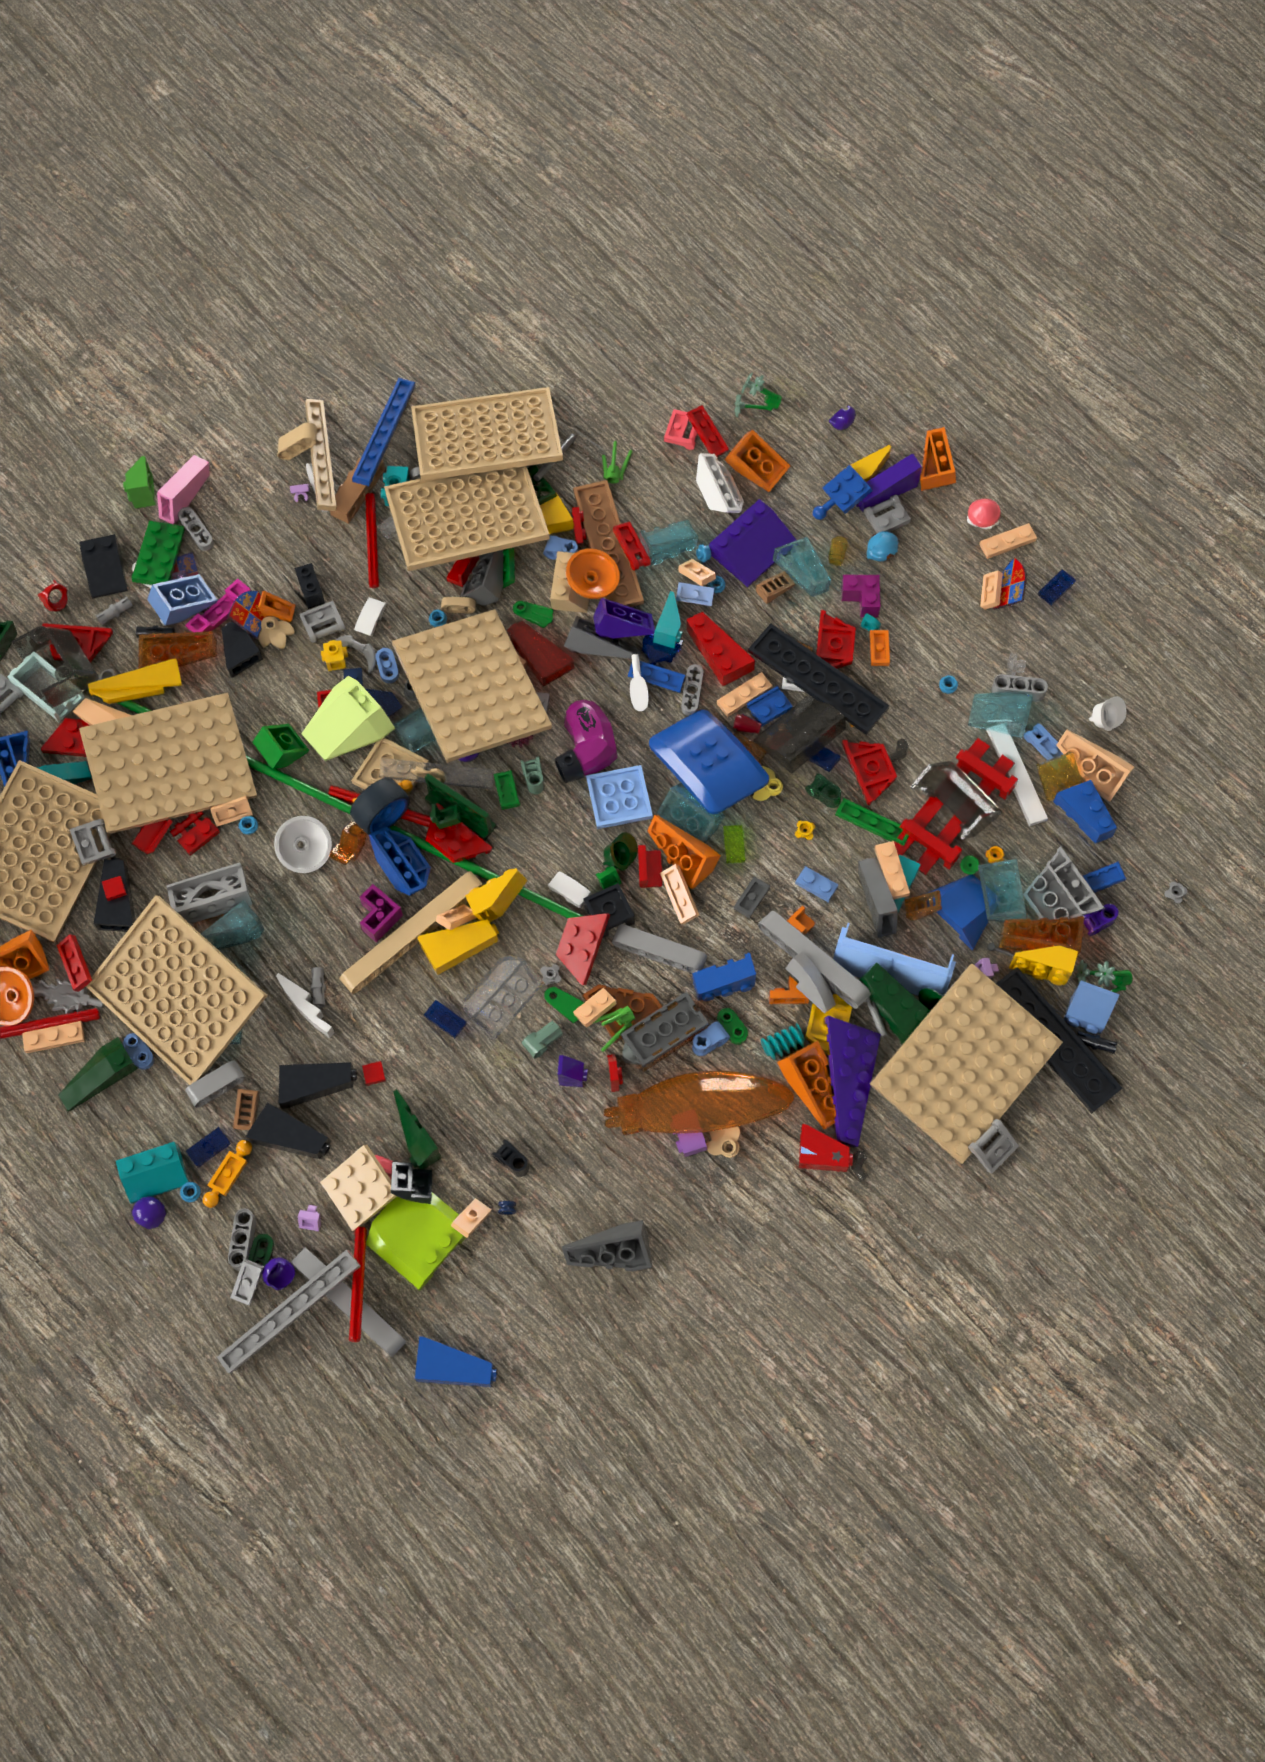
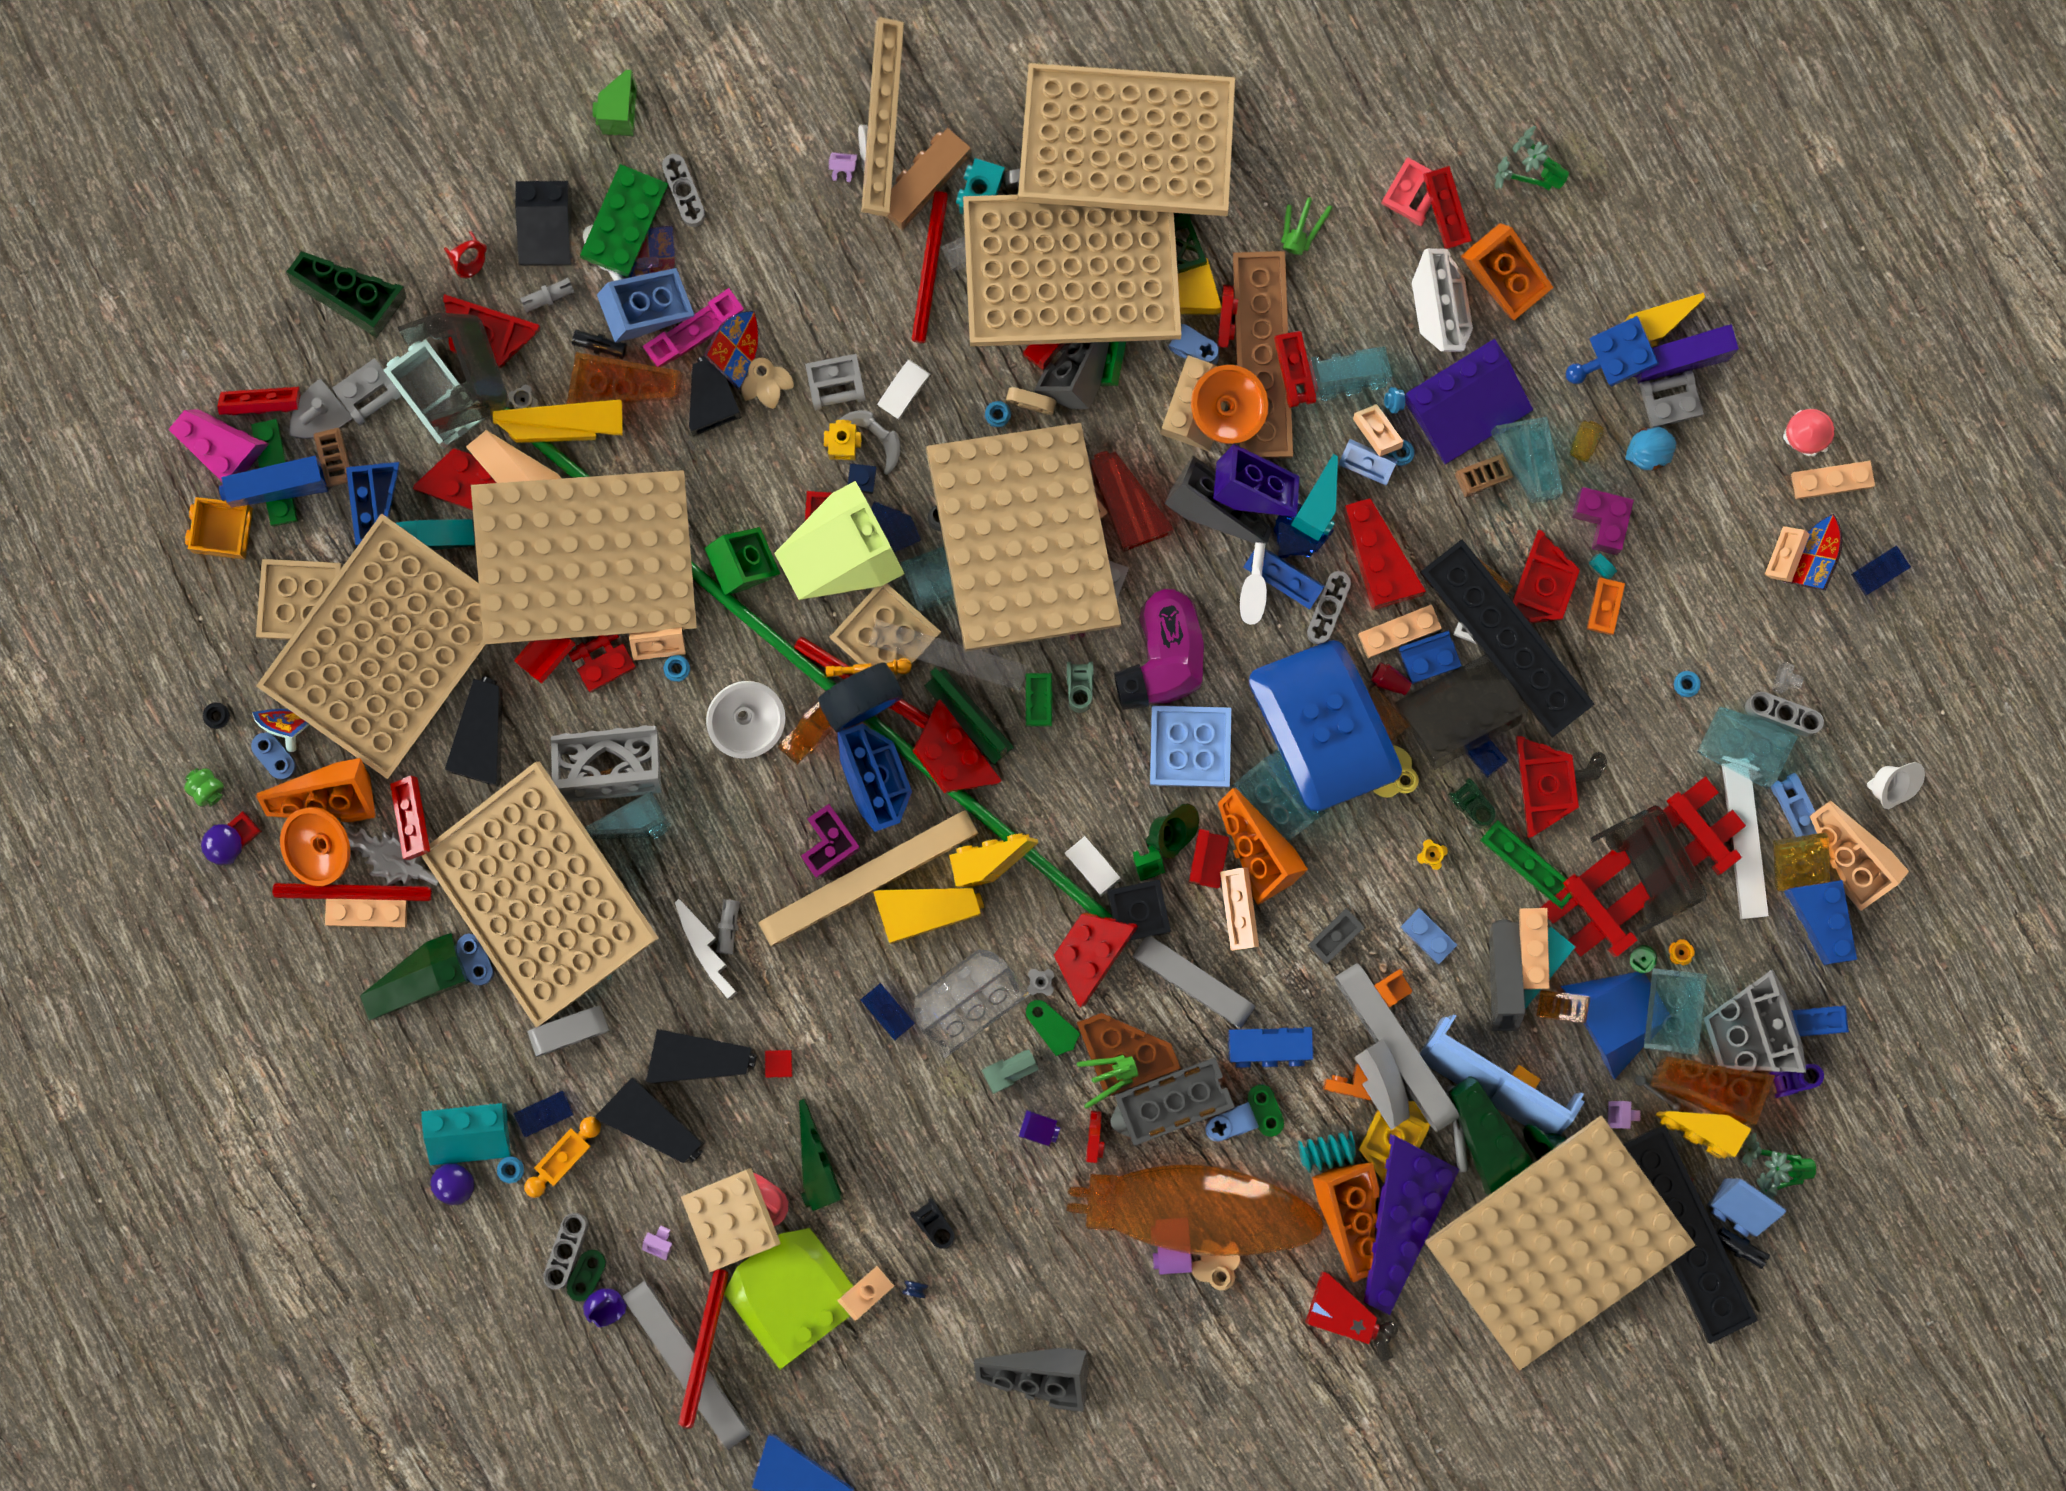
camera: 10 degrees right, 15 degrees up
(86, 844) = (453, 655): light grey plate -> none
(114, 888) = (480, 726): red tile -> none
(182, 489) = (676, 123): bright pink slope -> none
(241, 1093) = (610, 1052): medium nougat slope -> none
(247, 1282) = (562, 1310): light grey plate -> none
(275, 606) = (776, 347): orange slope -> none
(288, 1311) = (609, 1363): light grey plate -> none
(297, 441) = (853, 88): tan beam -> none
(309, 585) = (828, 322): black brick -> none
(383, 432) = (981, 99): blue tile -> none
(387, 667) = (912, 472): medium blue plate -> none
(411, 1183) = (798, 1231): black slope -> none
(438, 774) = (943, 664): tan plate -> none
(445, 817) = (947, 728): dark green bracket -> none
(456, 917) = (930, 874): light nougat plate -> none
(534, 613) = (1135, 436): green piece -> none
(542, 471) = (1235, 180): flat silver bar -> none
(594, 1007) = (1089, 1047): light nougat plate -> none
(734, 844) = (1331, 851): clear neon green tile -> none
(843, 418) = (1648, 229): dark purple hair -> none
(937, 462) = (1765, 336): orange wedge -> none
(998, 1150) = (1569, 1365): light grey plate -> none
(1181, 890) = (1911, 1071): light grey plate -> none

